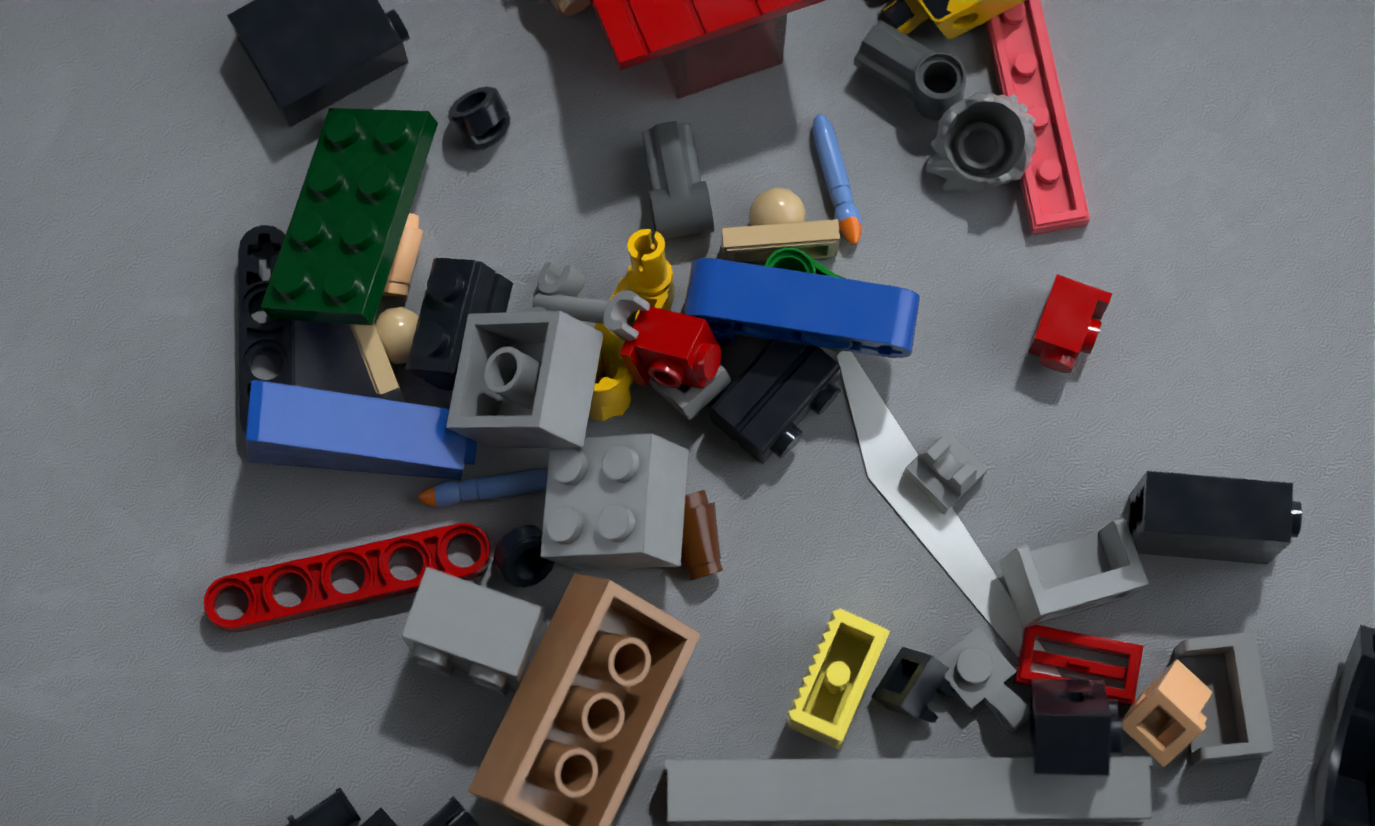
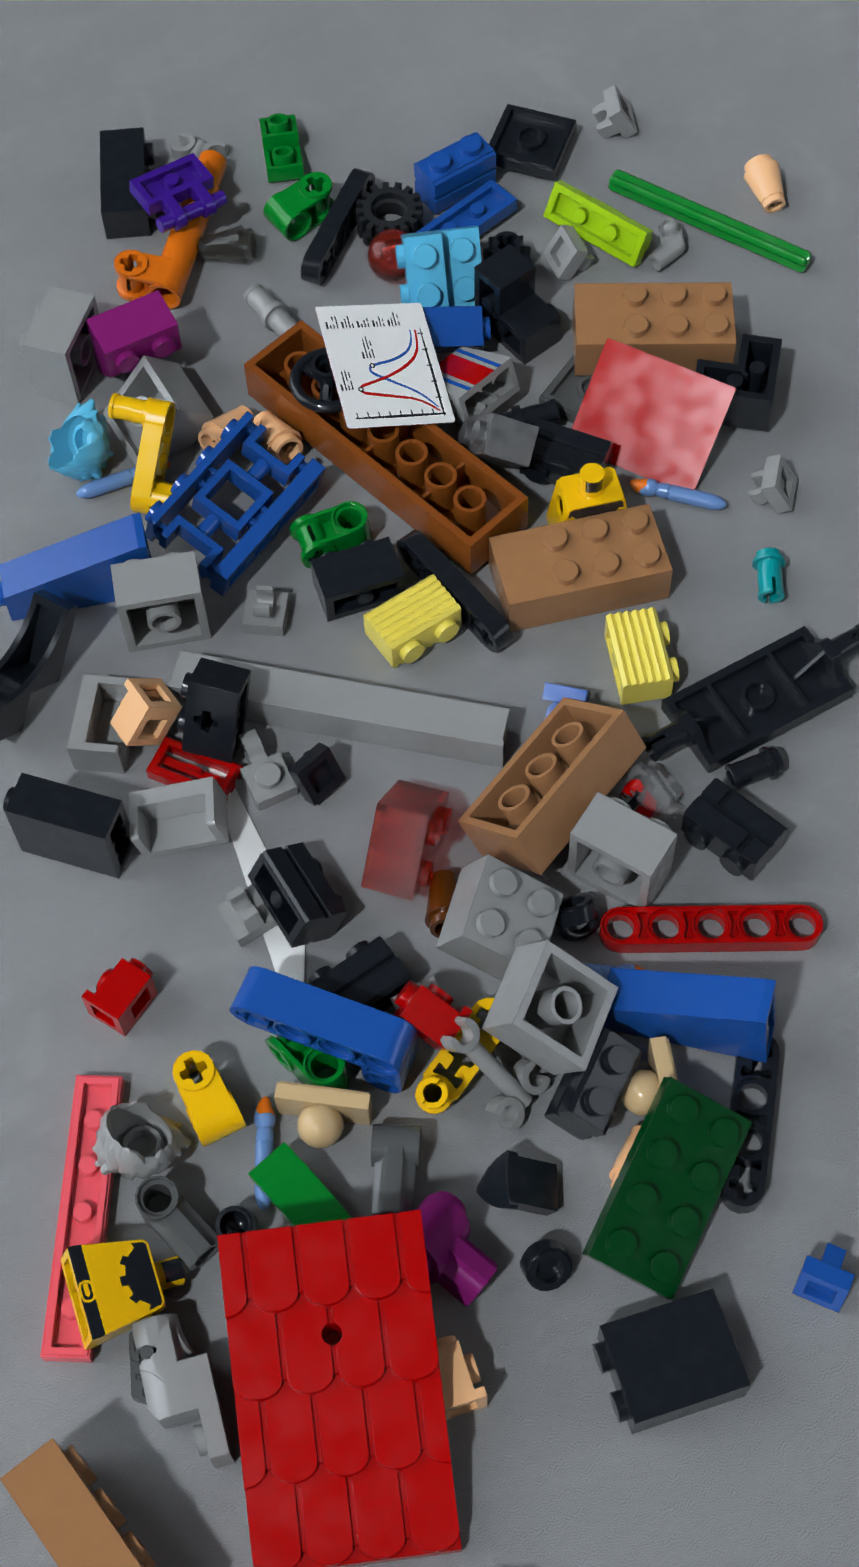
camera: 165 degrees left, 15 degrees down
(157, 164) = (824, 1280): none -> blue tile
(337, 717) = (733, 830): none -> black brick
(448, 745) = (653, 791): none -> clear head
(524, 194) = (520, 1184): none -> black tile
(603, 99) = (449, 1253): none -> magenta piece
(765, 602) = (402, 834): none -> clear red brick
(778, 124) = (295, 1189): none -> green slope
(836, 678) = (366, 778): light yellow brick -> none
(841, 79) = (235, 1220): none -> black piece
(884, 497) = (297, 894): none -> black brick
(914, 212) = (207, 1102): none -> yellow piece

